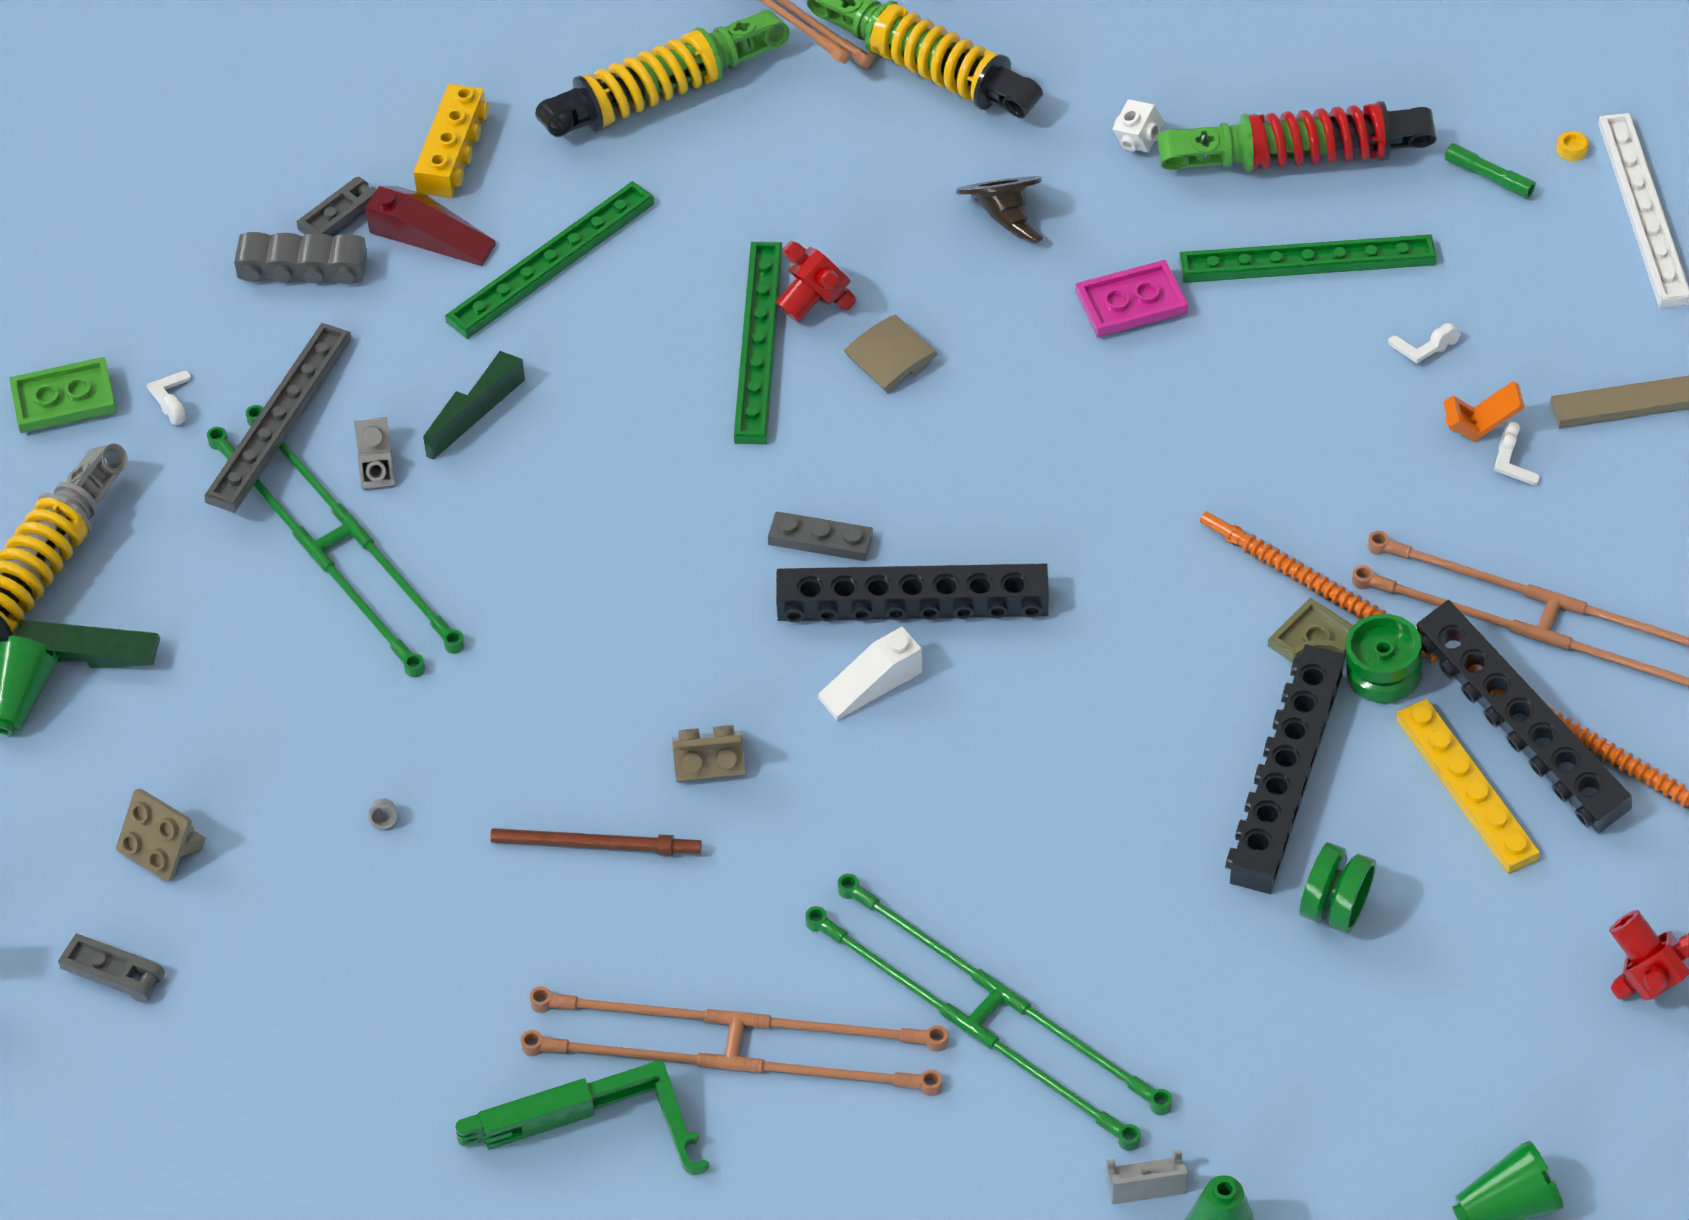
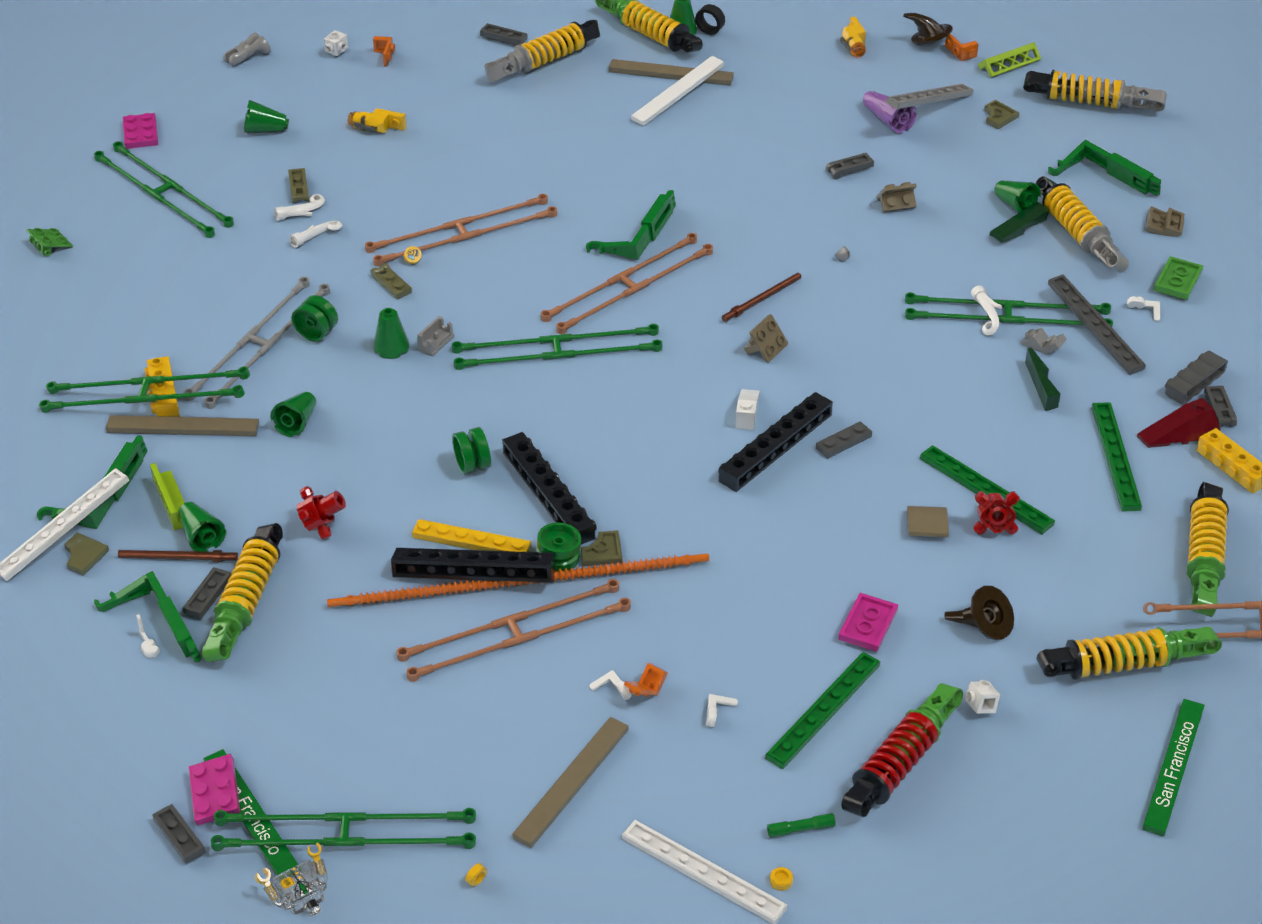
camera: 130 degrees right, 10 degrees down
(345, 566) = (980, 295): none -> white plant

